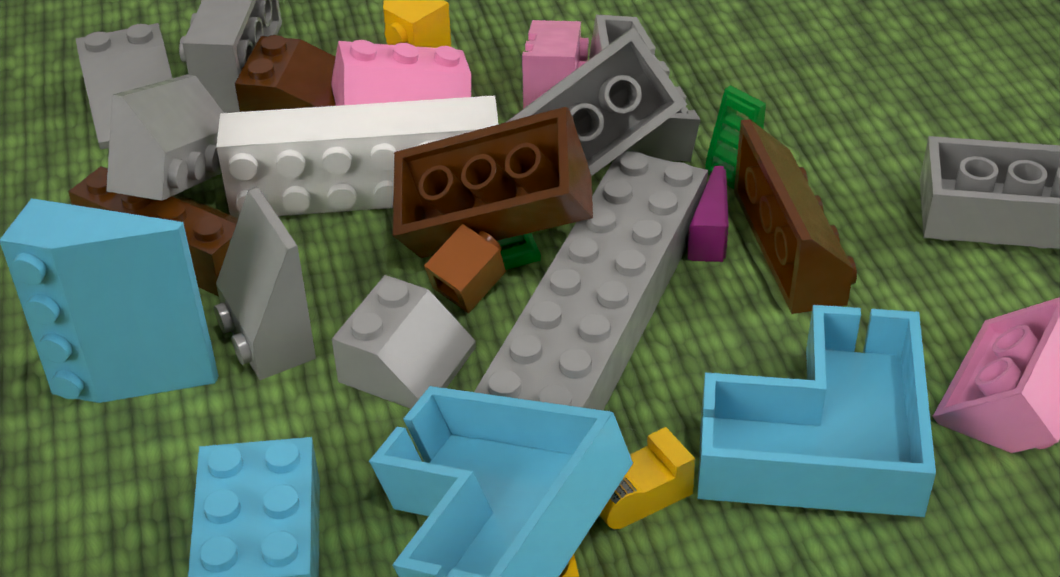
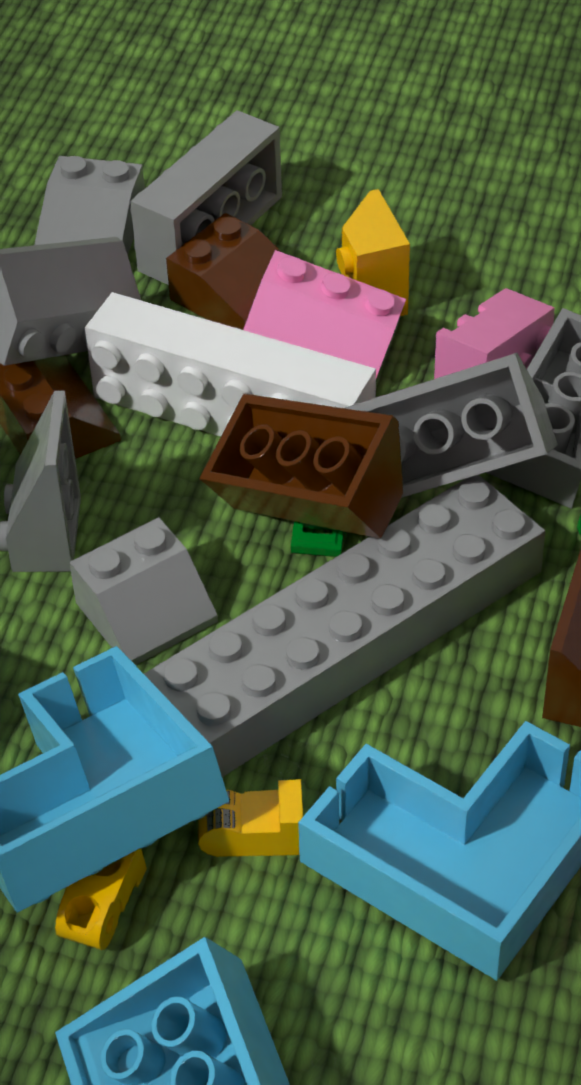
camera: 30 degrees right, 5 degrees up
(466, 267) = (248, 538): dark orange brick -> none
(710, 221) = (525, 584): magenta slope -> none

